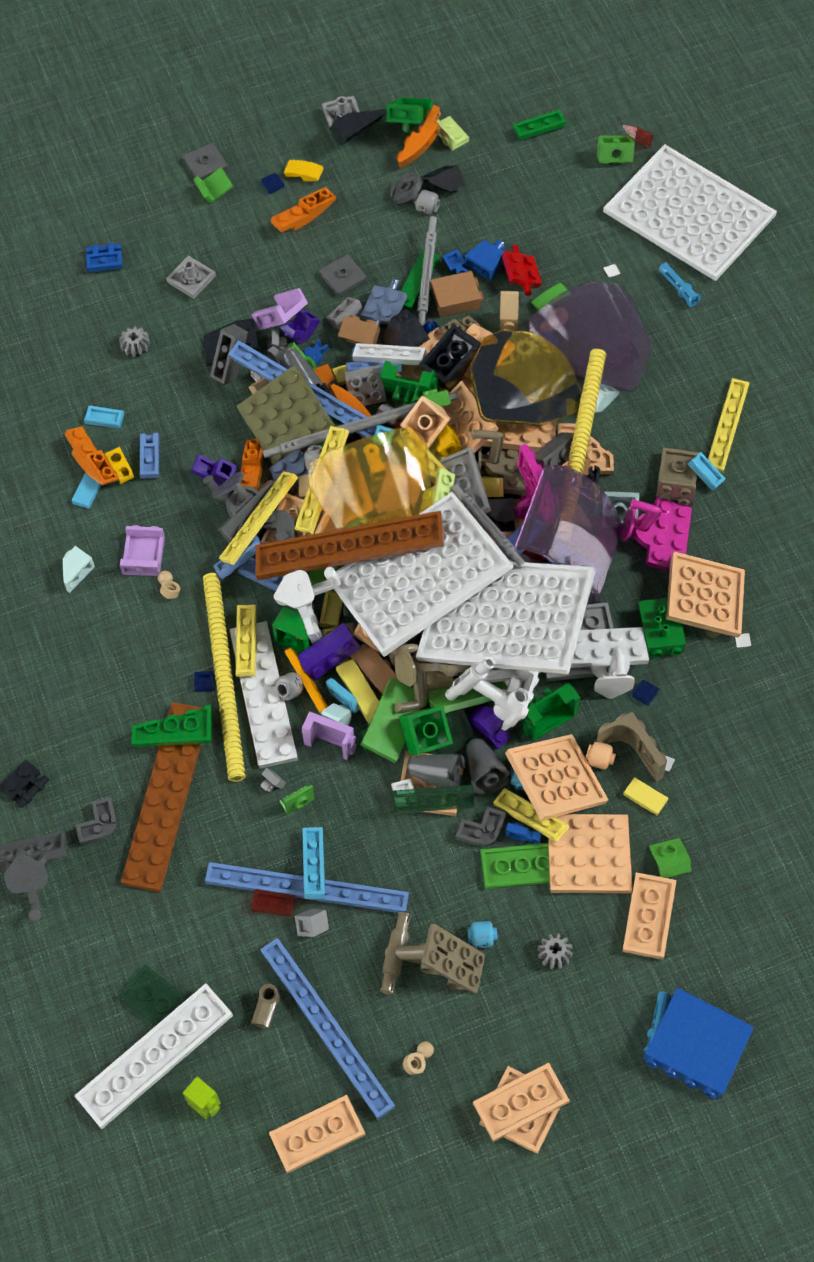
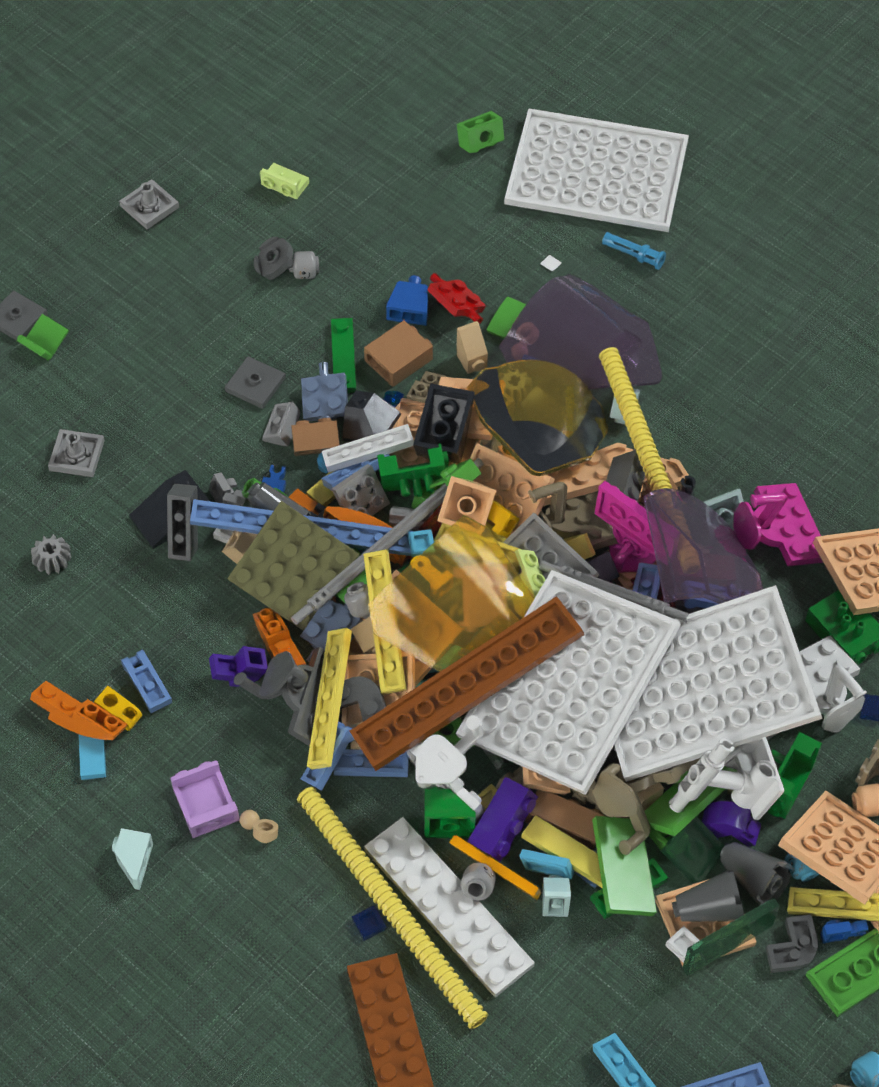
camera: 30 degrees left, 5 degrees down
(104, 417) = (62, 659): medium azure tile -> none
(181, 729) = (380, 994): green wing -> none
(246, 640) = (395, 850): light yellow tile -> none
(272, 183) = (111, 310): clear blue tile -> none
(272, 780) = (523, 1003): light grey tile -> none
(287, 306) = (215, 447): lavender panel -> none
(297, 799) = (565, 1013): bright green piece -> none
(301, 327) = (243, 458): dark purple brick -> none
(306, 170) = (144, 280): yellow slope -> none
(306, 210) = (169, 326): orange slope -> none
(329, 731) = (561, 913): lavender panel -> none
(331, 610) = (474, 775): light yellow tile -> none
(352, 124) = (168, 215): black slope -> none
(408, 112) = (231, 172): green piece -> none
(419, 142) = (259, 199): orange slope -> none
(425, 730) = (671, 860): green slope -> none
(427, 270) = (351, 337): light grey axle -> none
(445, 178) = (311, 230): black slope -> none
(454, 262) = (376, 319): blue plate -> none
(539, 125) = (379, 137): green plate -> none
(639, 135) = (498, 106): clear red slope -> none
(676, 477) = (762, 455): dark tan bracket -> none
(706, 471) = (788, 436): medium azure tile -> none
(728, 424) = (776, 380): light yellow tile -> none

